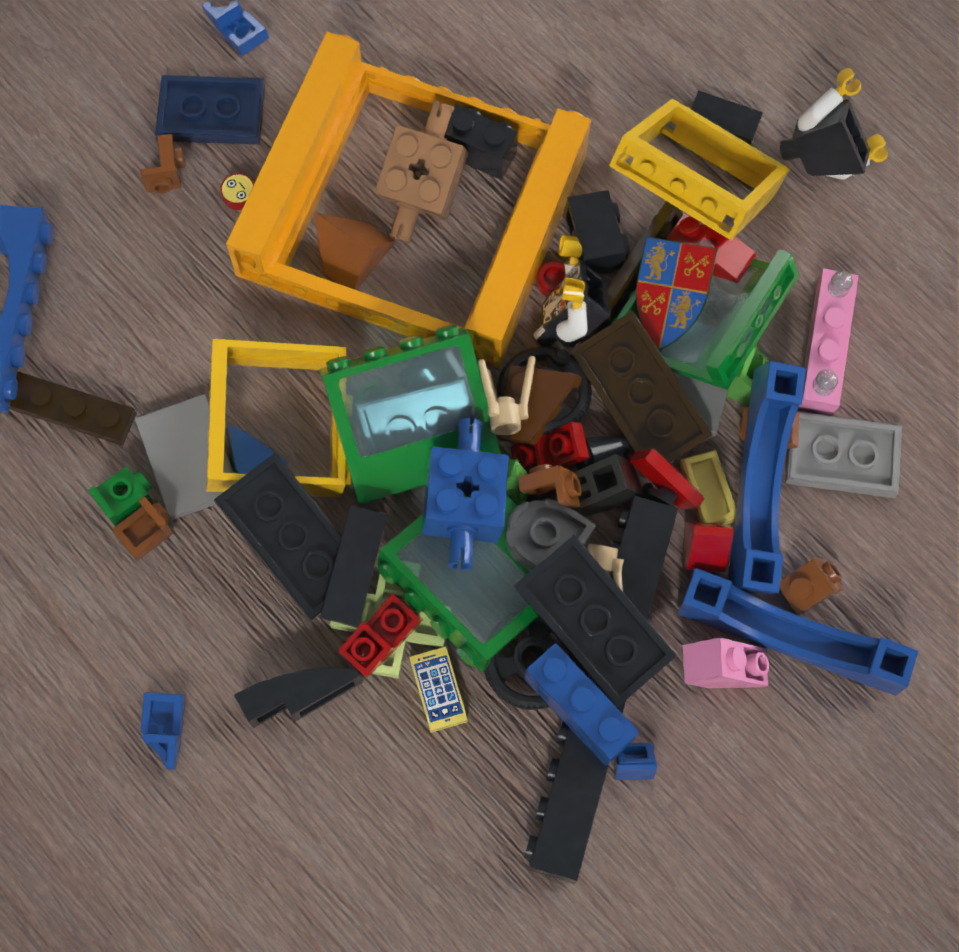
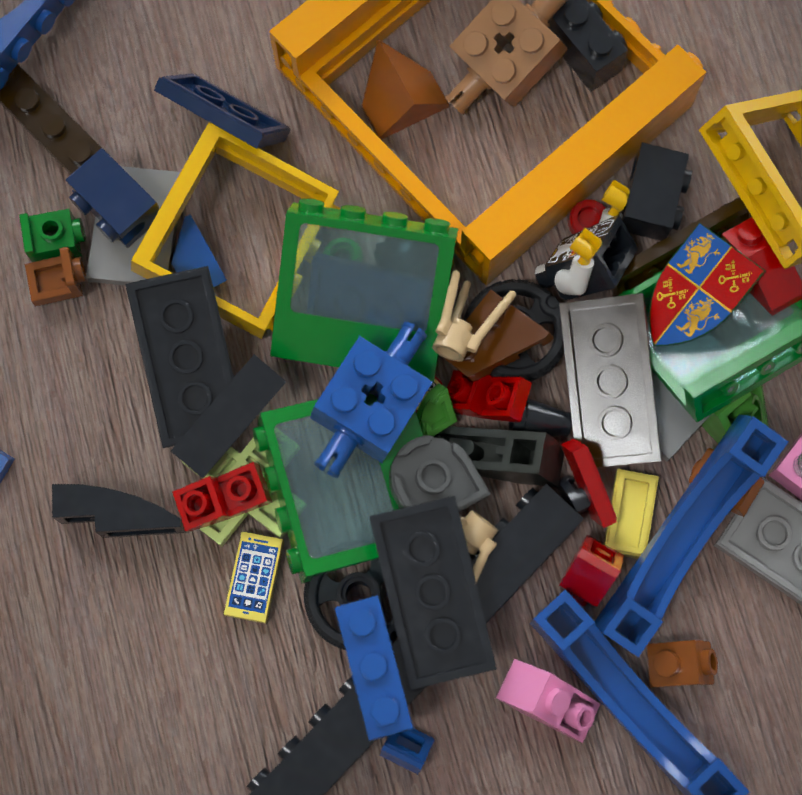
camera: 30 degrees right, 5 degrees up
(161, 440) = (113, 198): none -> dark blue brick
(215, 326) = (223, 109): none -> dark blue tile
(550, 479) = (465, 423): dark orange bracket -> none

